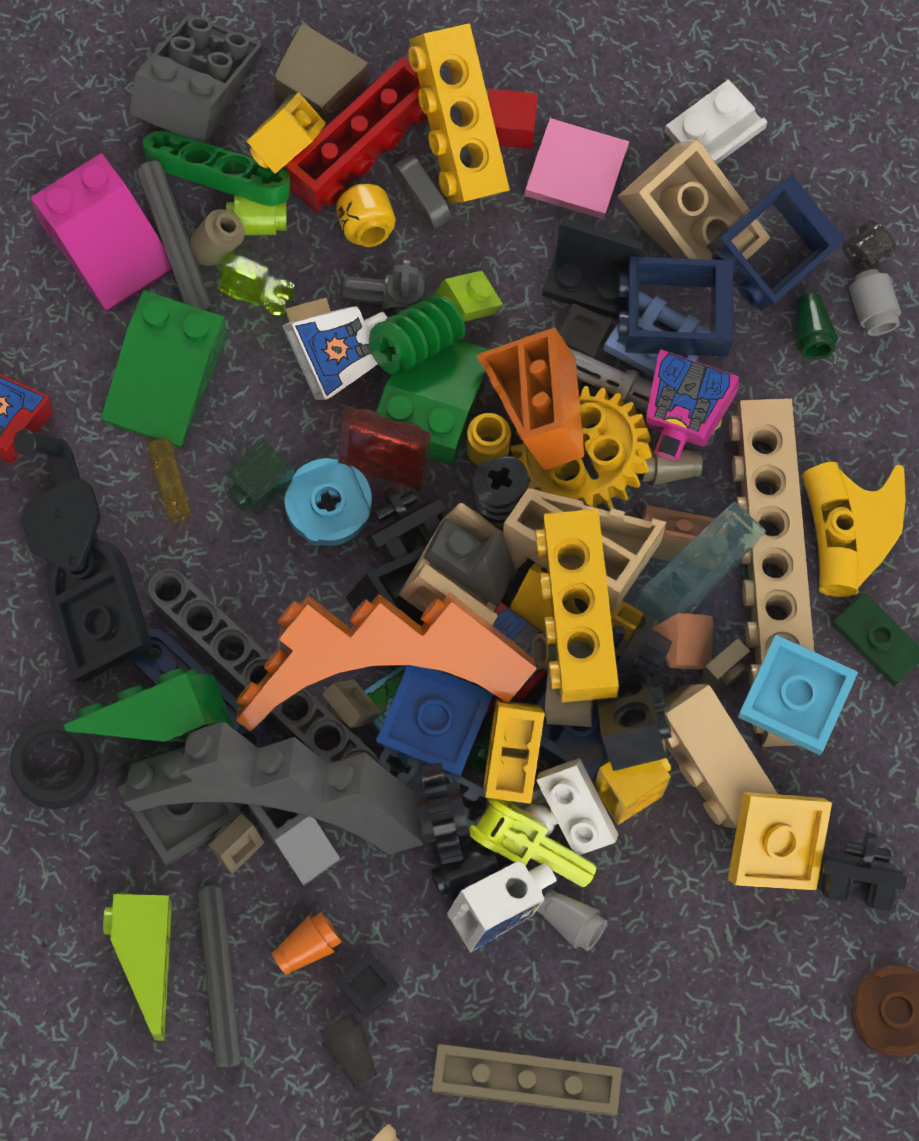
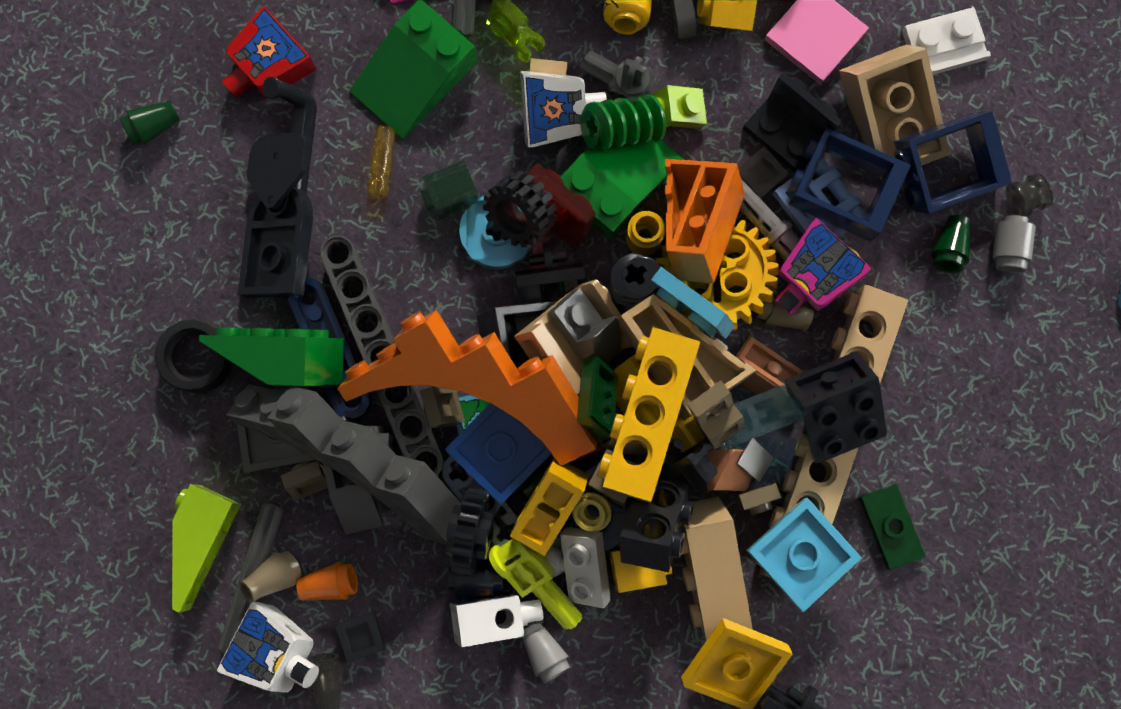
camera: 25 degrees right, 10 degrees up
(245, 956) = (273, 575): none -> dark tan cone
(276, 1039) = (269, 651): none -> torso
(356, 446) = (537, 213): none -> black tyre
(515, 619) = (597, 397): none -> dark green plate
(556, 755) = (585, 520): none -> light yellow plate
(591, 485) = (682, 297): none -> medium azure plate
(645, 583) = (717, 415): none -> dark tan slope
(707, 624) = (755, 460): none -> white sticker
(768, 530) = (839, 406): none -> black bracket
(869, 521) = (928, 425): yellow pin -> none

